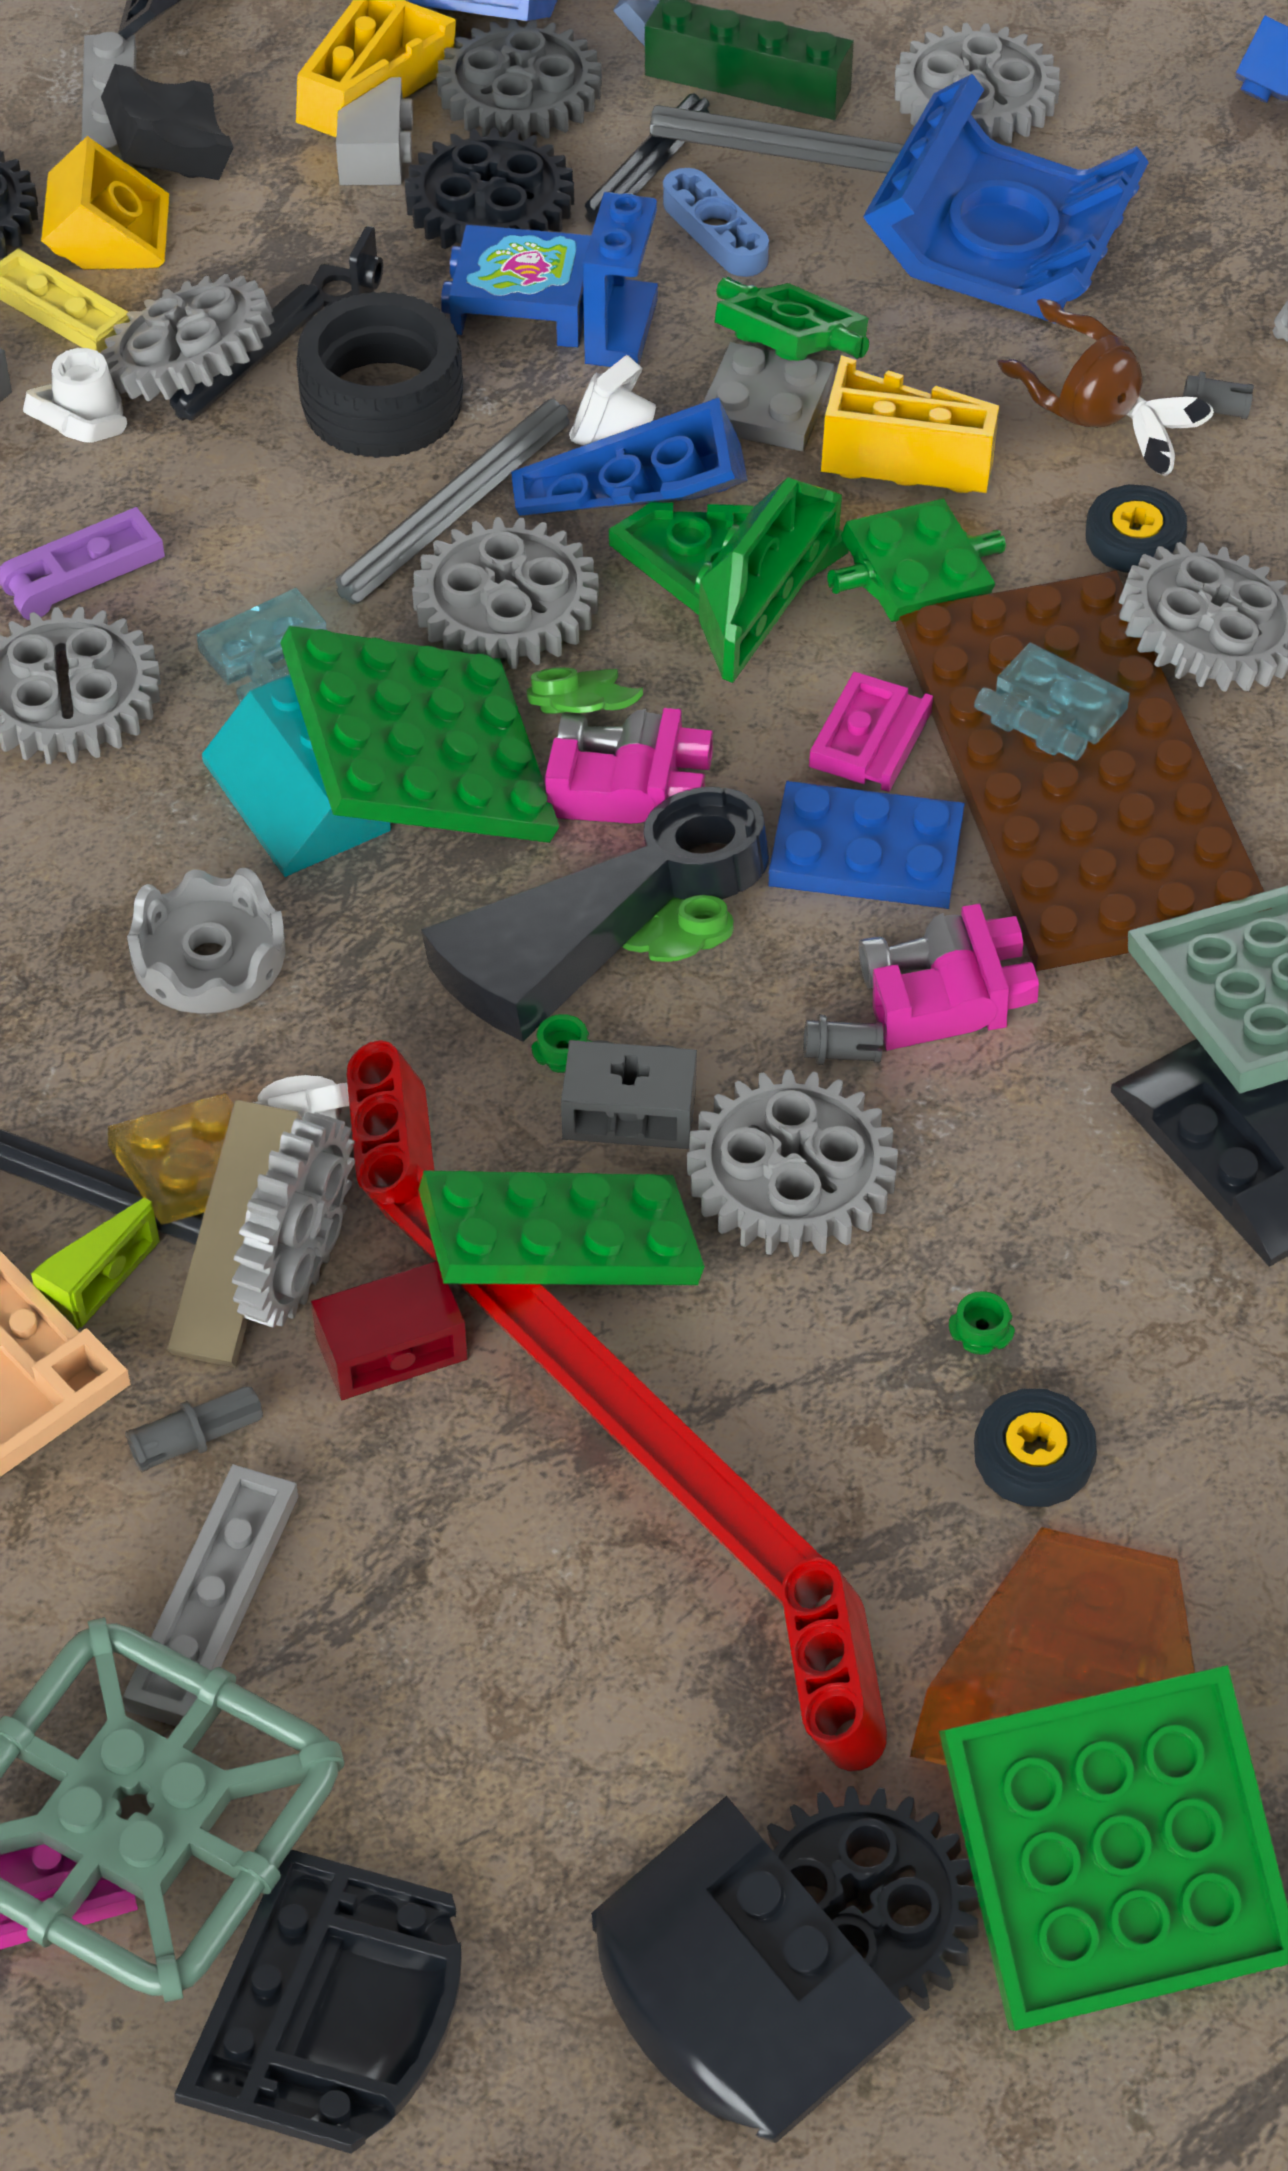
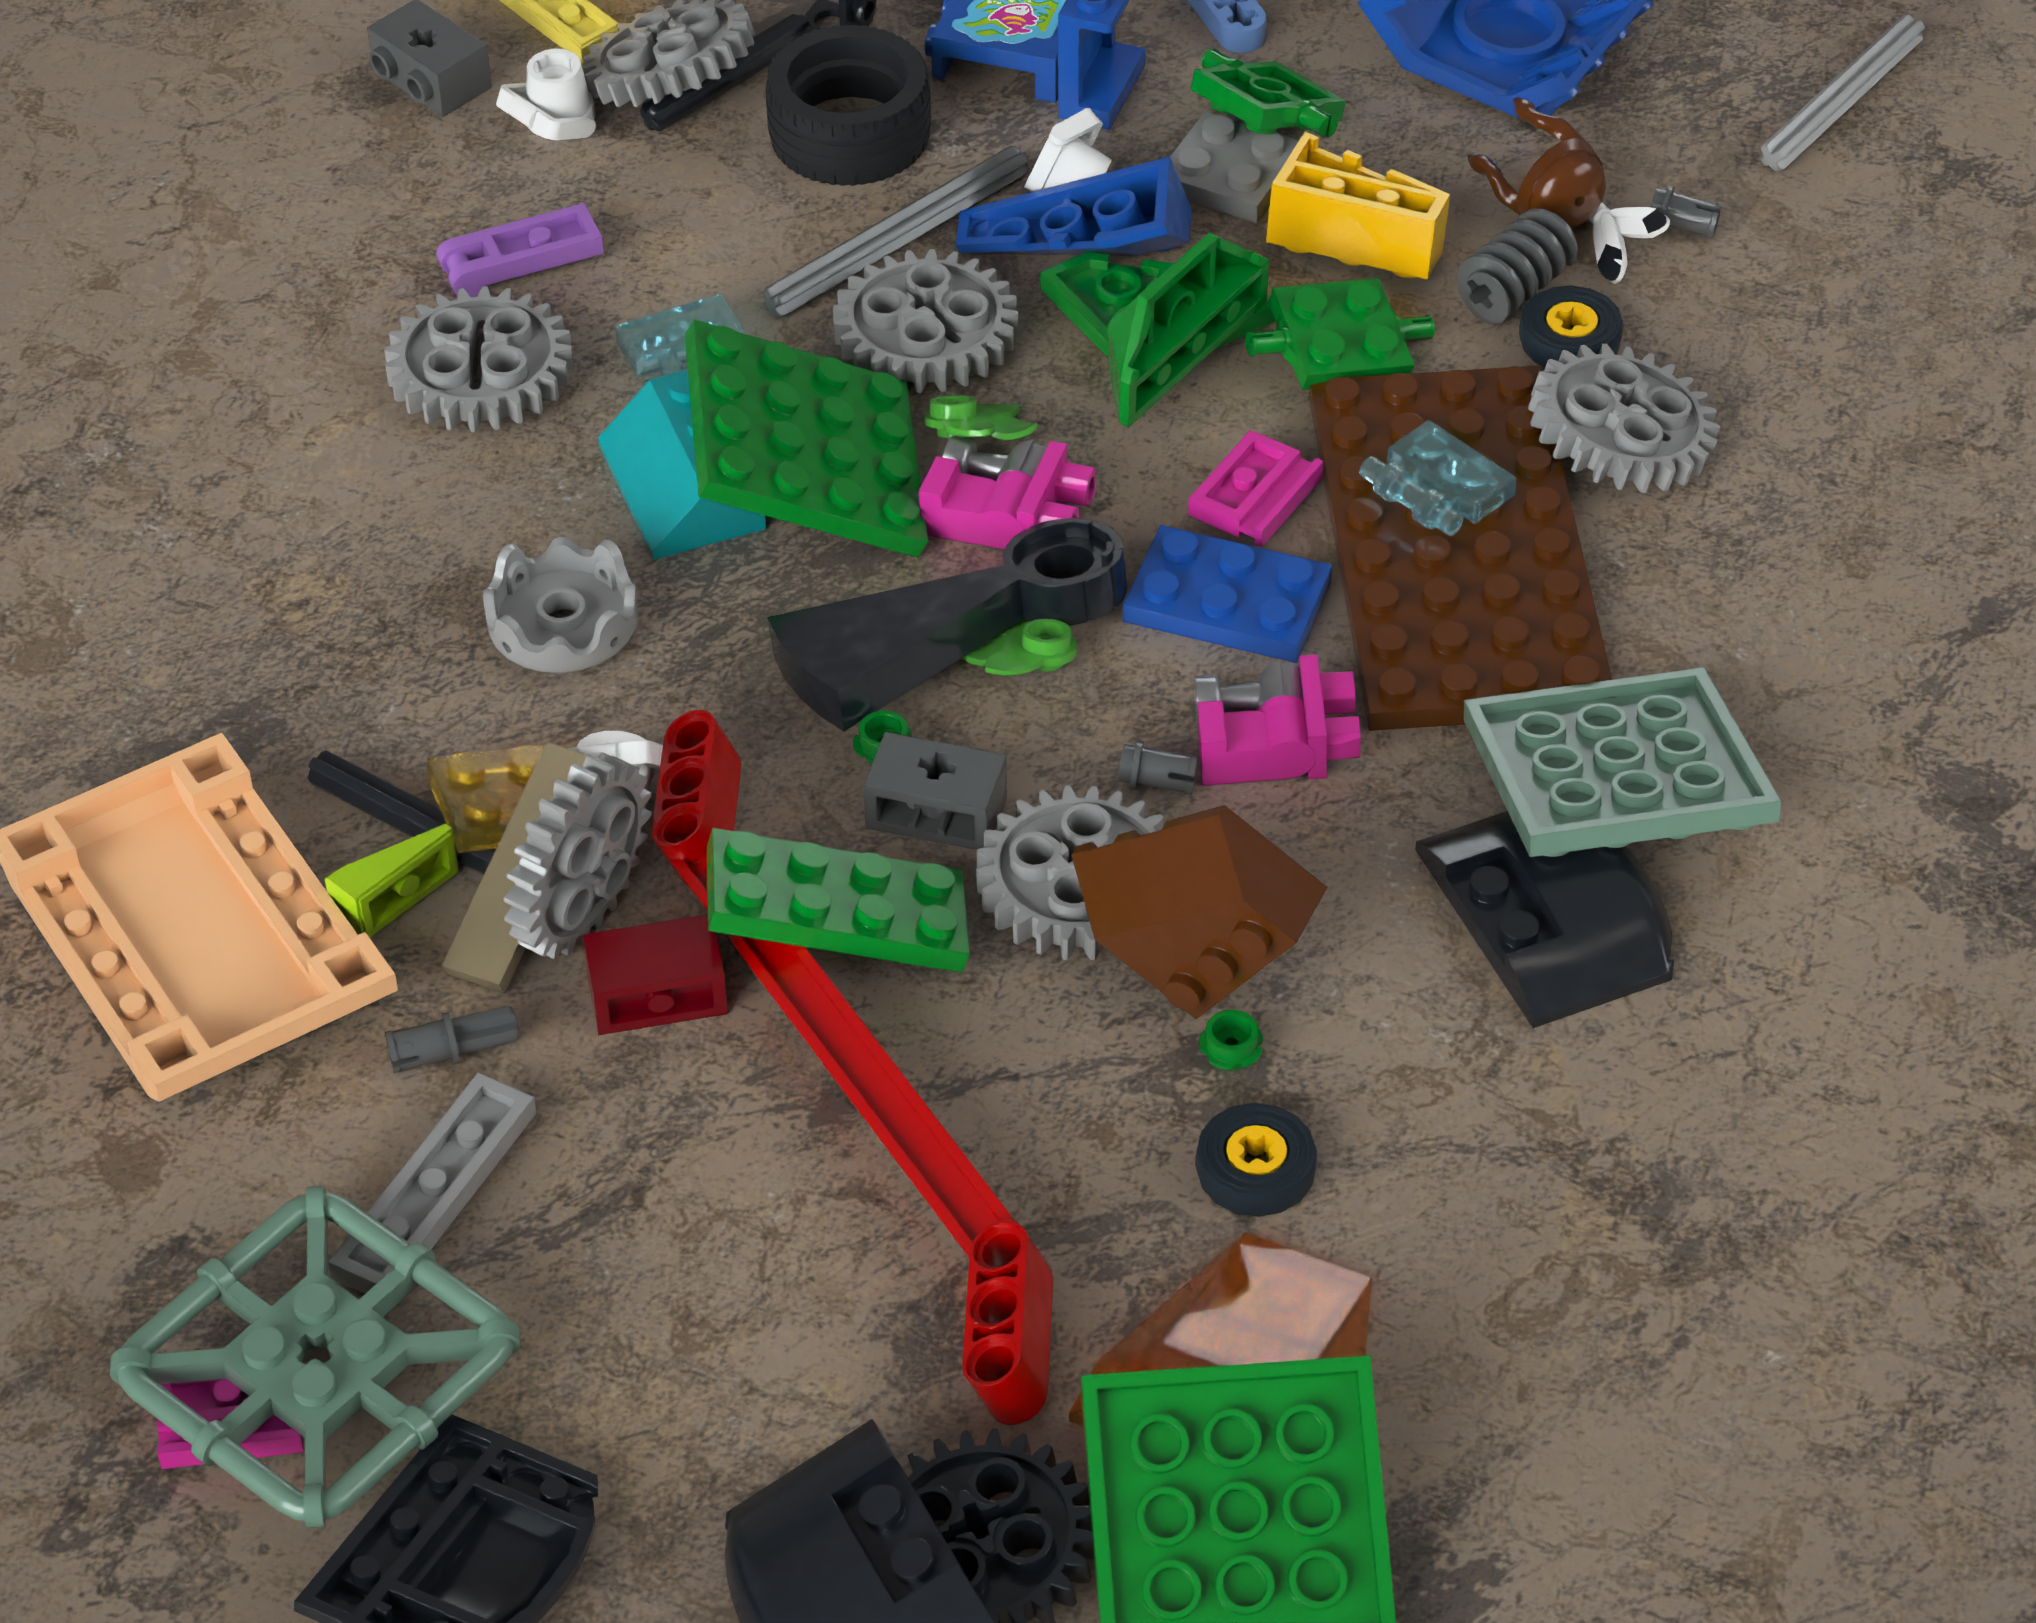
camera: 10 degrees right, 5 degrees down
(934, 1193) = (1196, 904): none -> reddish brown wedge
(1071, 469) = (1516, 265): none -> dark grey piece

